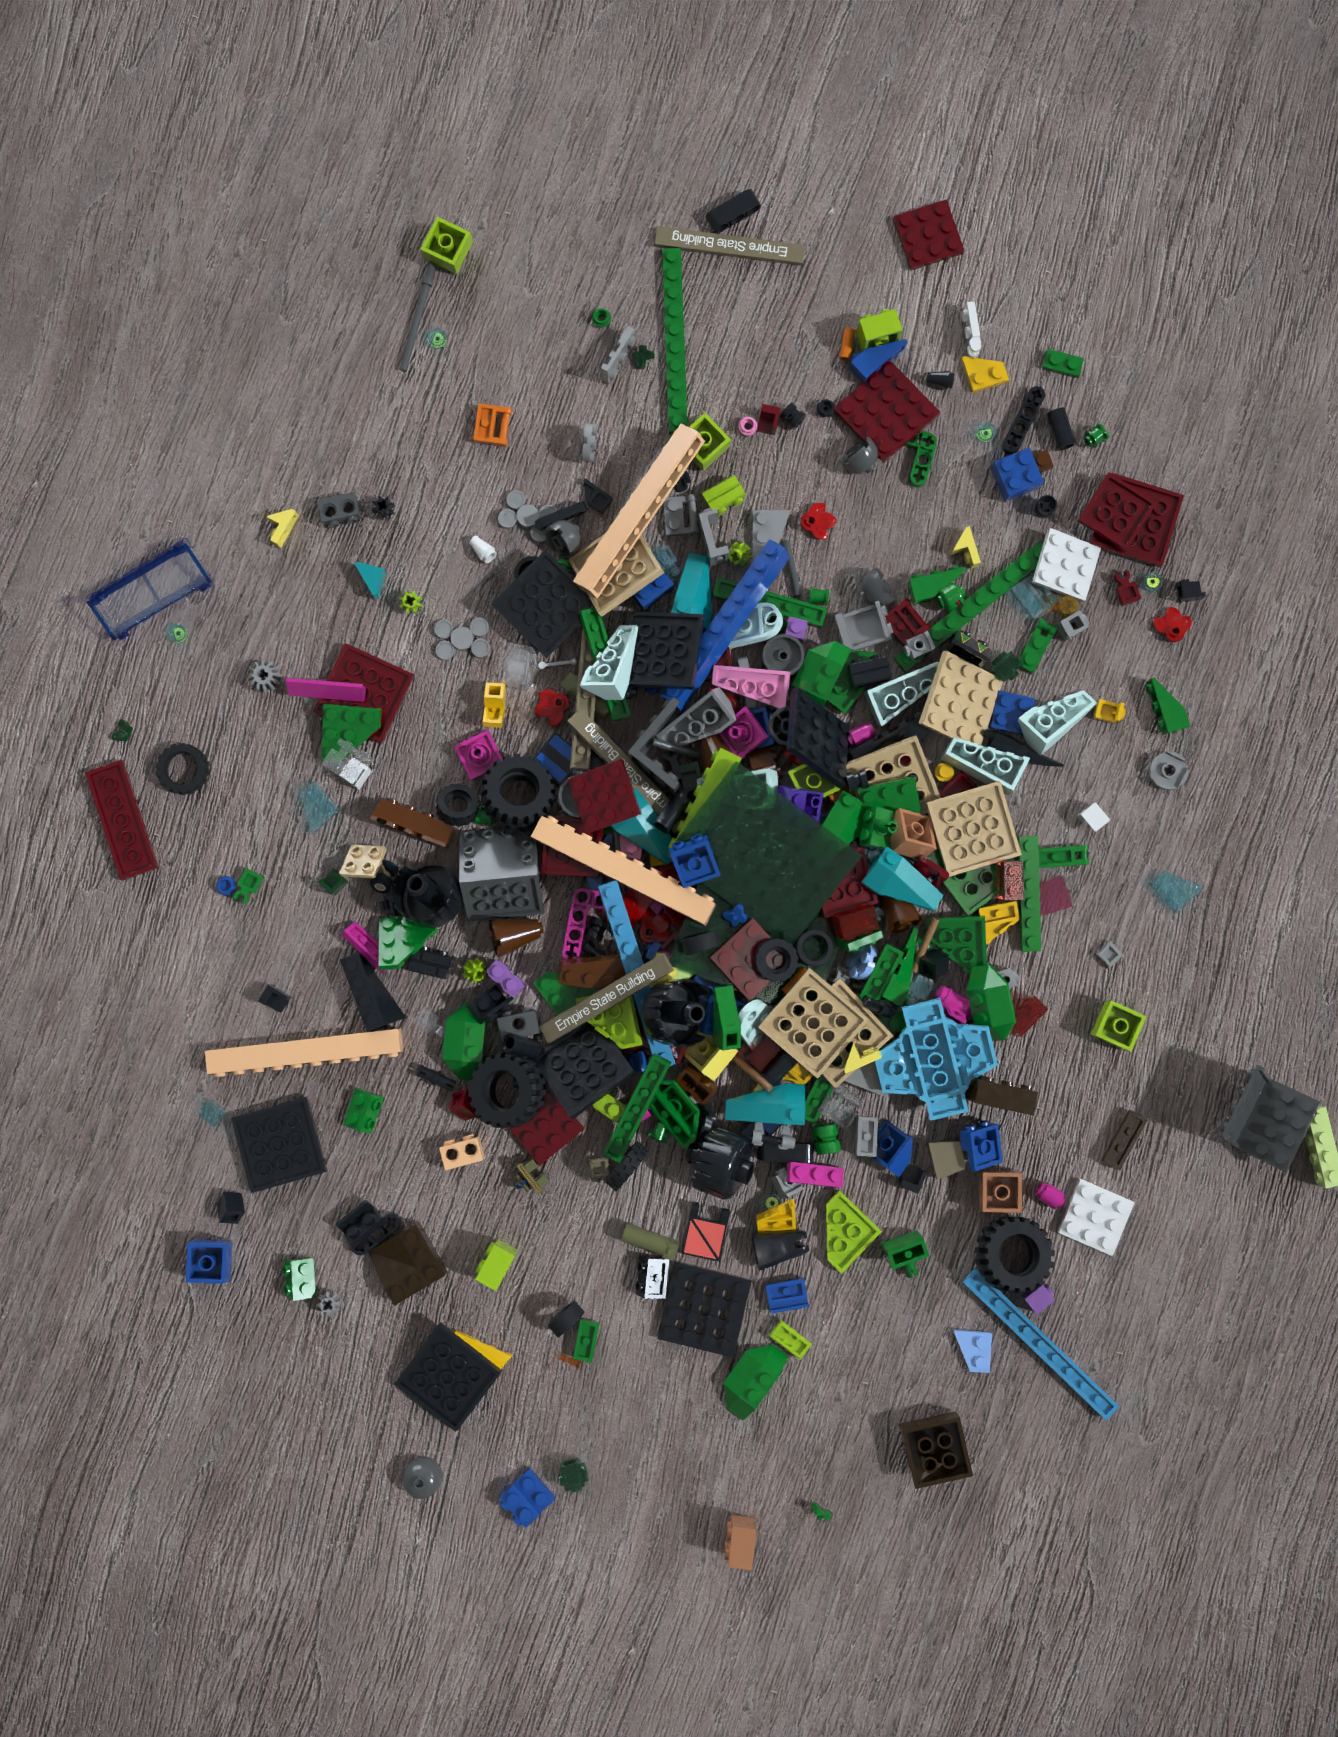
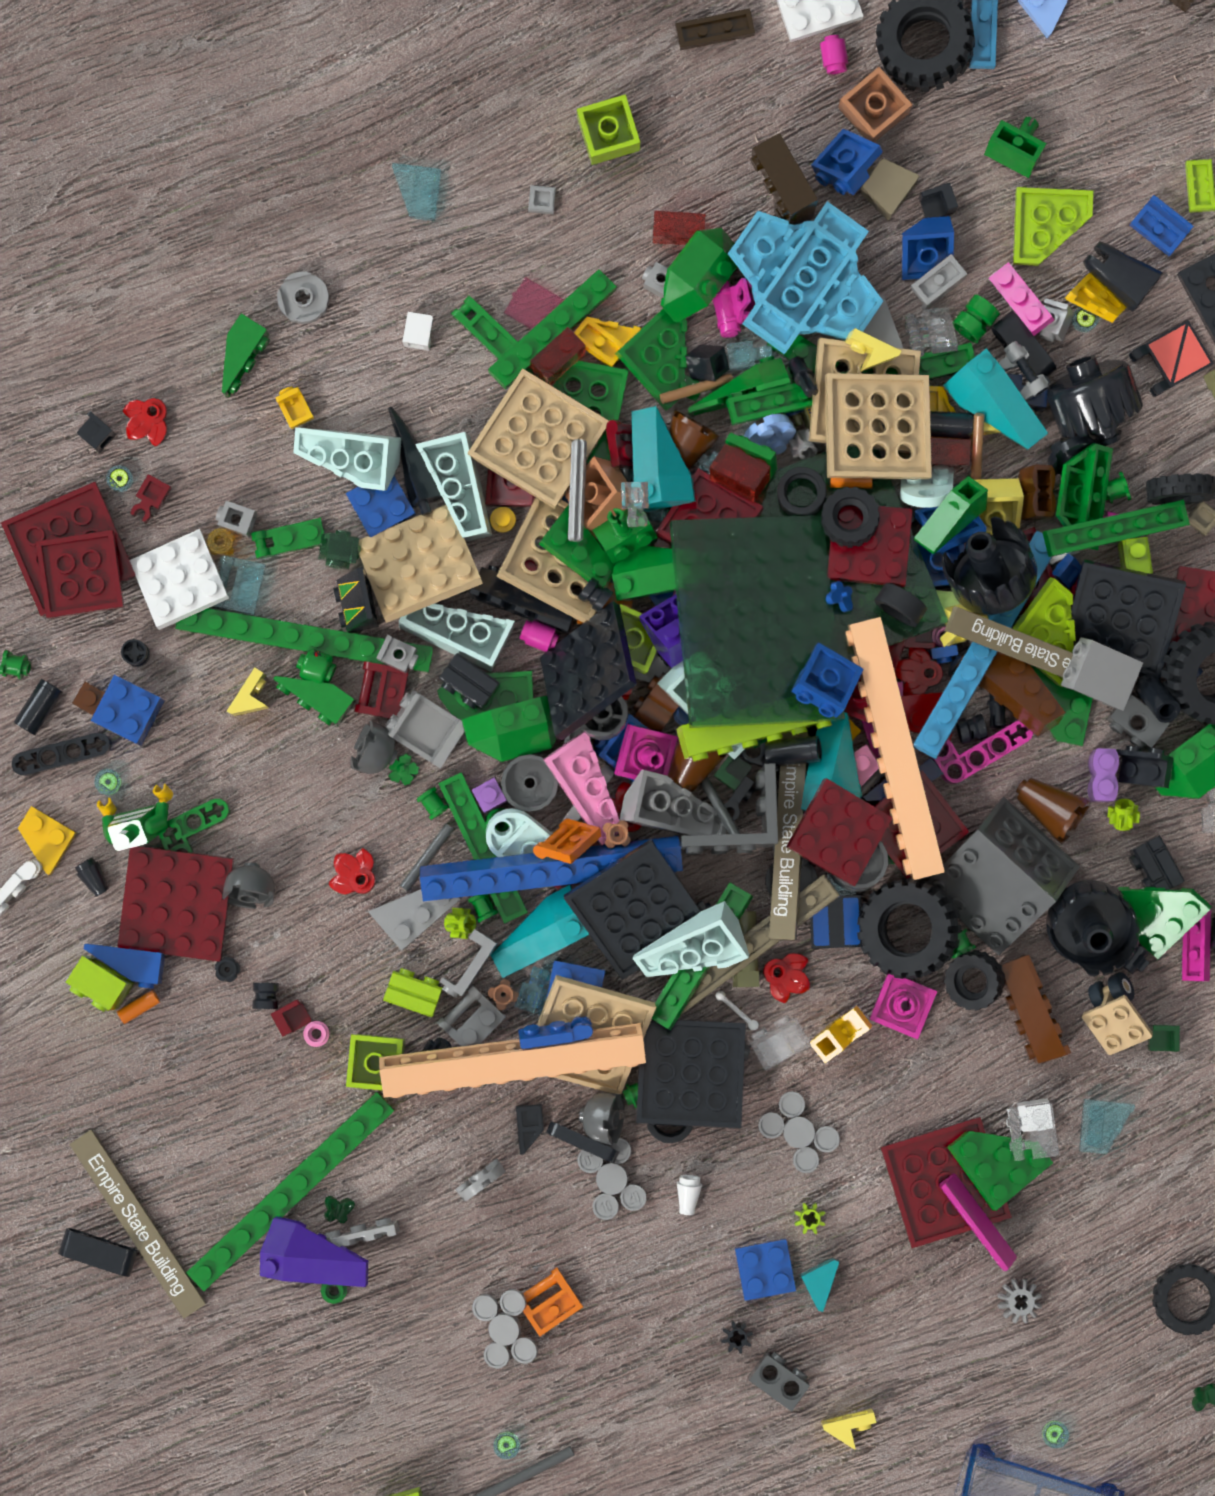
camera: 130 degrees left, 0 degrees up
(405, 555) = (765, 1269): none -> blue plate
(499, 389) = (505, 1328): none -> light grey piece
(562, 1025) = (1101, 673): none -> light grey panel
(633, 544) = (555, 1033): none -> blue hinge
(634, 311) = (302, 1256): none -> dark purple wedge
(684, 540) = (495, 993): none -> nougat plate
(712, 672) = (621, 828): none -> nougat plate
(731, 646) = (568, 841): none -> orange plate
(736, 573) = (482, 907): none -> green bush
(851, 598) = (403, 770): none -> green plant
(891, 846) = (634, 499): none -> clear plate
(925, 822) = (577, 490): none -> light grey axle
(948, 423) = (138, 825): none -> green torso

